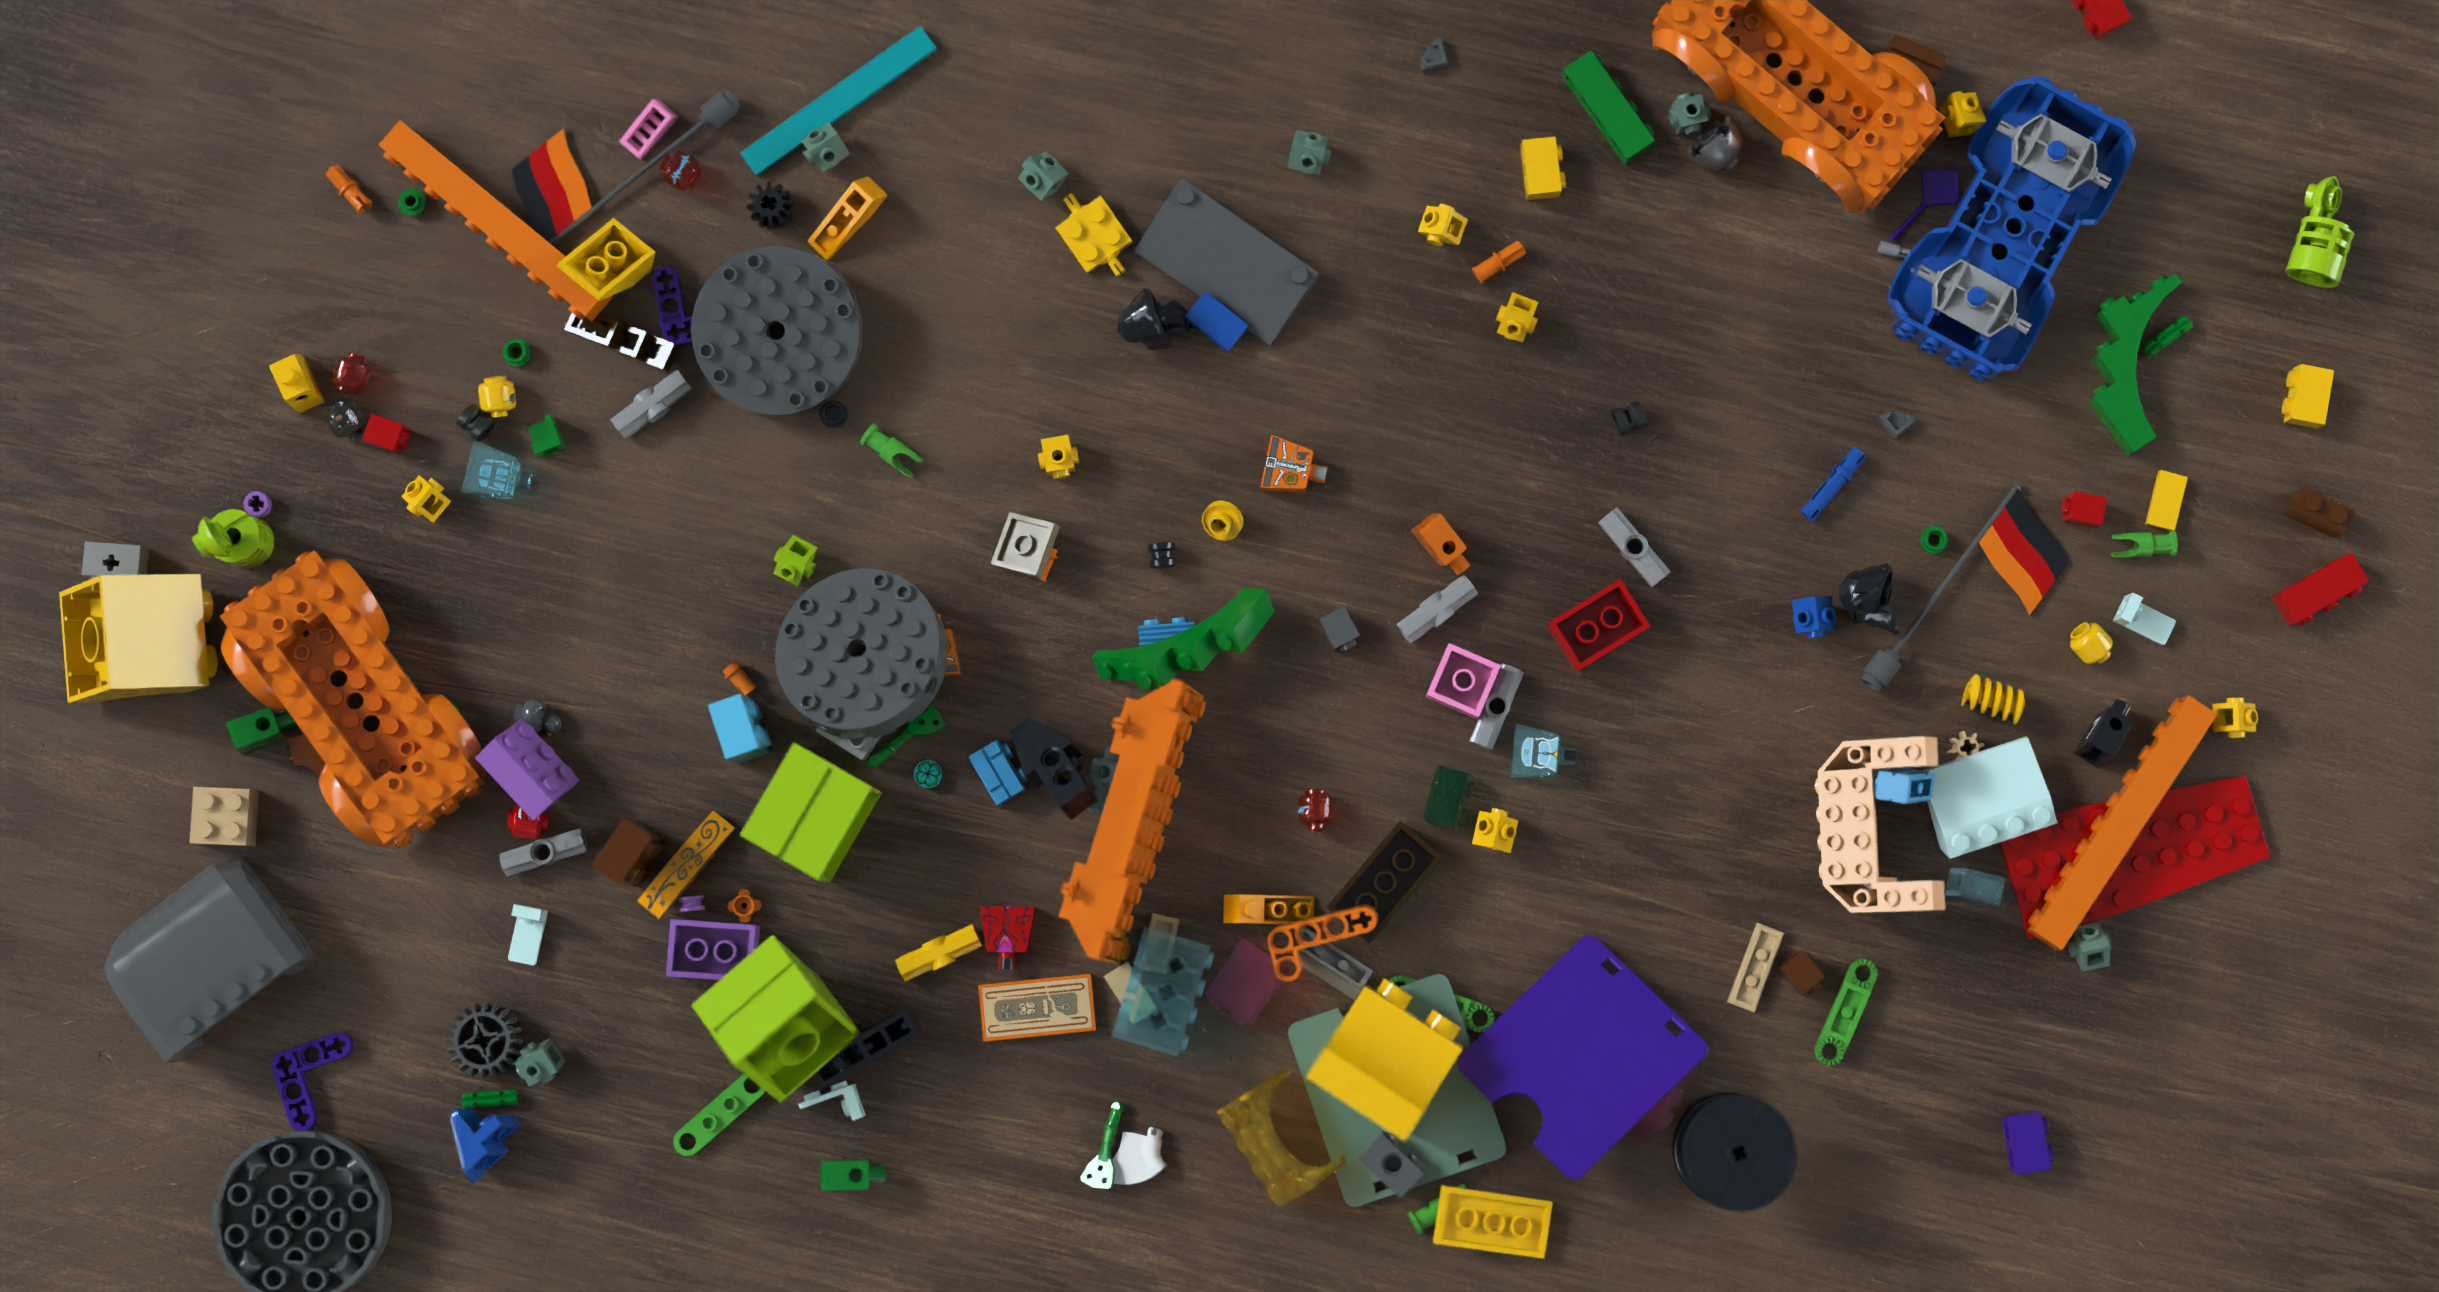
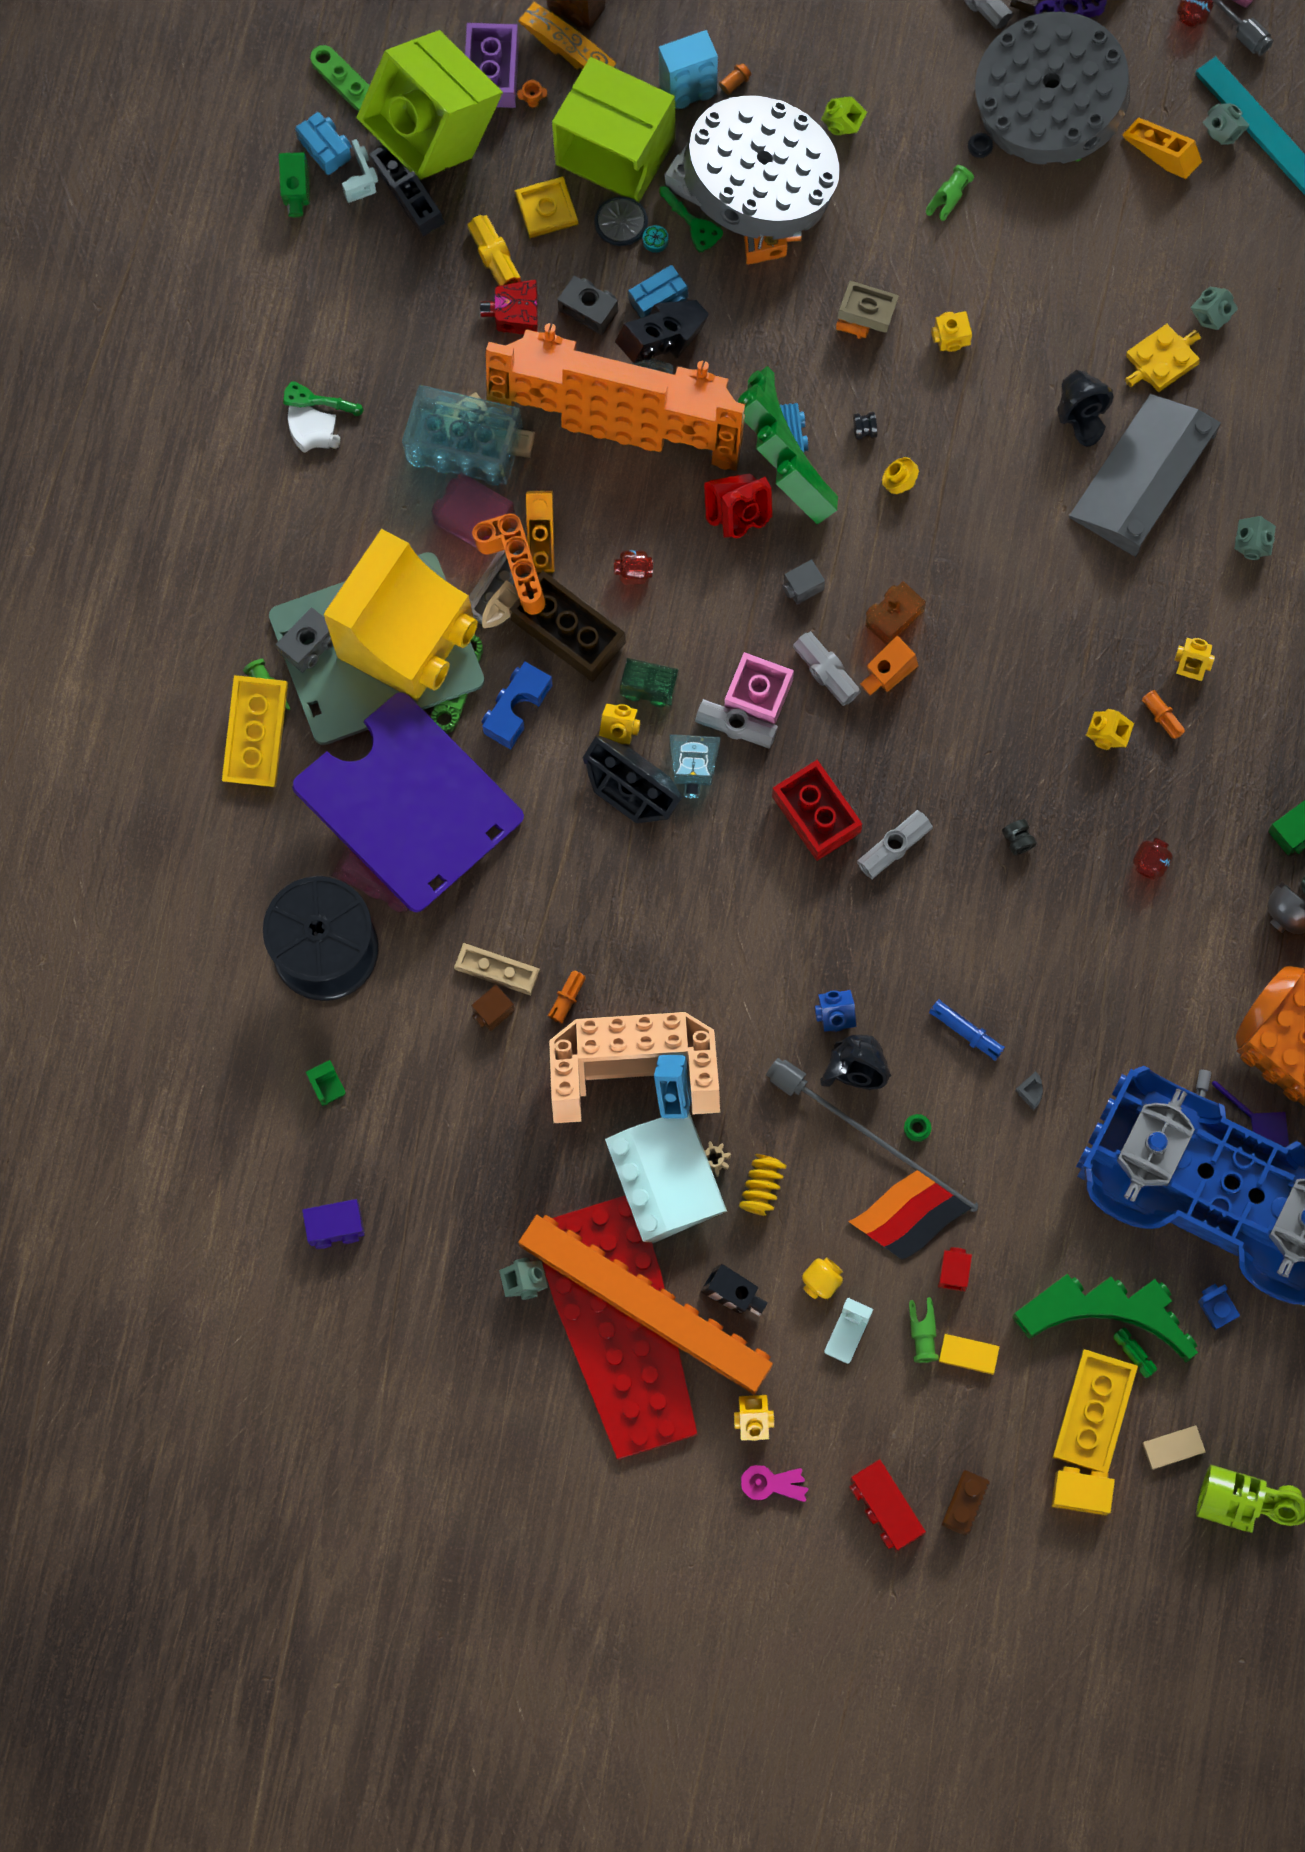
camera: 85 degrees right, 10 degrees down
(691, 903) = (532, 49): medium lavender bush -> none
(778, 198) = (1168, 82): black gear -> none
(796, 1141) = (323, 142): none -> dark azure brick
(883, 893) = (546, 207): none -> yellow tile
(903, 811) = (621, 221): none -> flat silver wheel
(1005, 867) = (594, 317): none -> dark grey brick
(1037, 1007) = (446, 338): tile -> none
(1216, 321) = (1087, 465): blue slope -> none
(1251, 694) = (738, 503): none -> red piece
(1253, 1131) = (318, 529): clear yellow piece -> none
(1289, 467) = (953, 532): torso -> none
(1357, 953) = (499, 604): none -> tan plate
(1374, 519) = (887, 625): none -> clear orange brick
(1445, 928) = (526, 685): none -> blue arch
(1541, 168) = (1257, 750): yellow brick -> none
(1560, 818) = (630, 781): none -> black wedge
(1656, 283) = (1152, 858): none -> clear red head
(1789, 894) = (566, 997): none -> orange axle
(1845, 1012) = (456, 1051): bright green plate -> none
(1877, 1149) = (325, 1083): none -> green panel
(1975, 886) = (577, 1172): clear light blue torso -> none
(2122, 251) = (1218, 1306): none -> blue bracket
(2227, 379) = (1095, 1411): none -> yellow plate
(2261, 305) = (1173, 1447): none -> tan tile
(2294, 714) = (760, 1482): none -> dark pink piece

